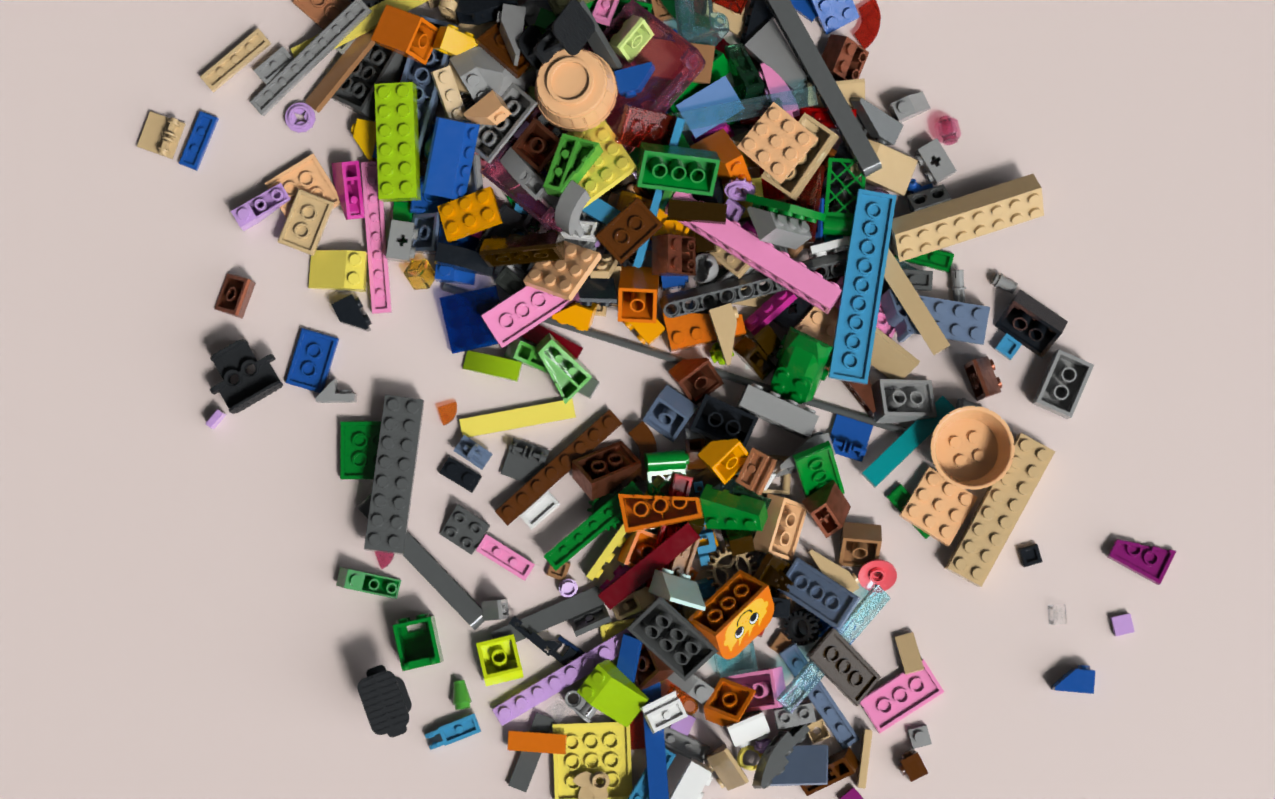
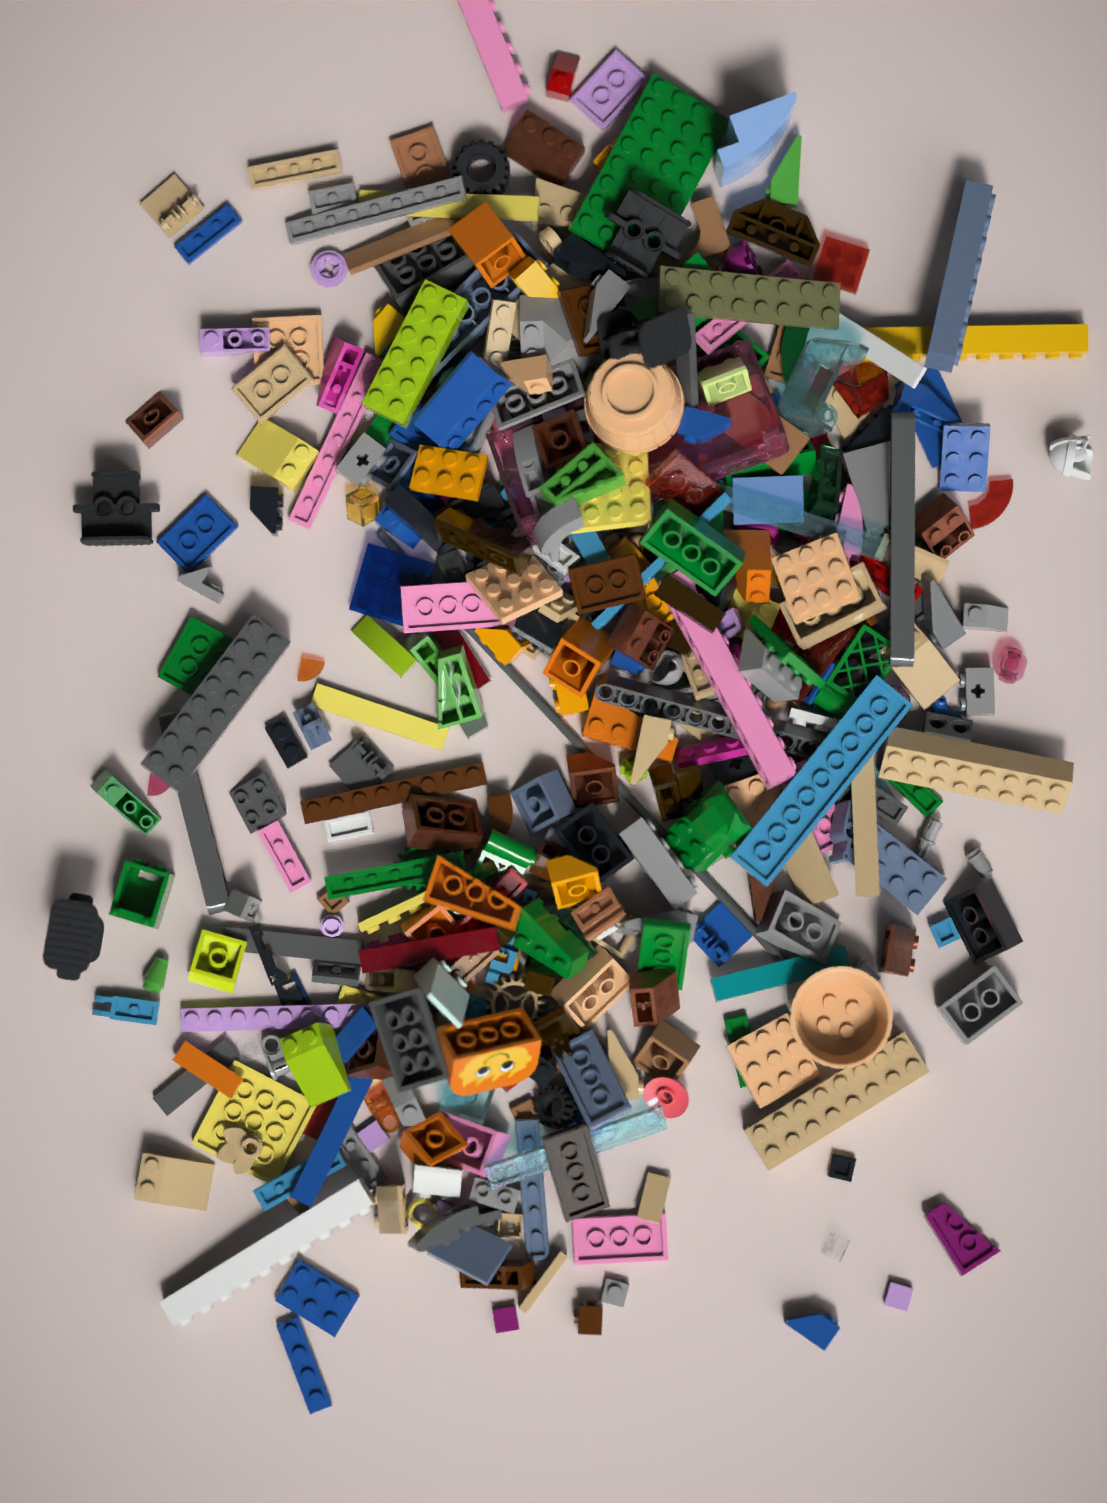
camera: 35 degrees right, 0 degrees up
(215, 419) = (61, 539): lavender tile -> none
(664, 712) = (358, 1112): white plate -> none
(739, 194) = (749, 604): lavender gear -> none

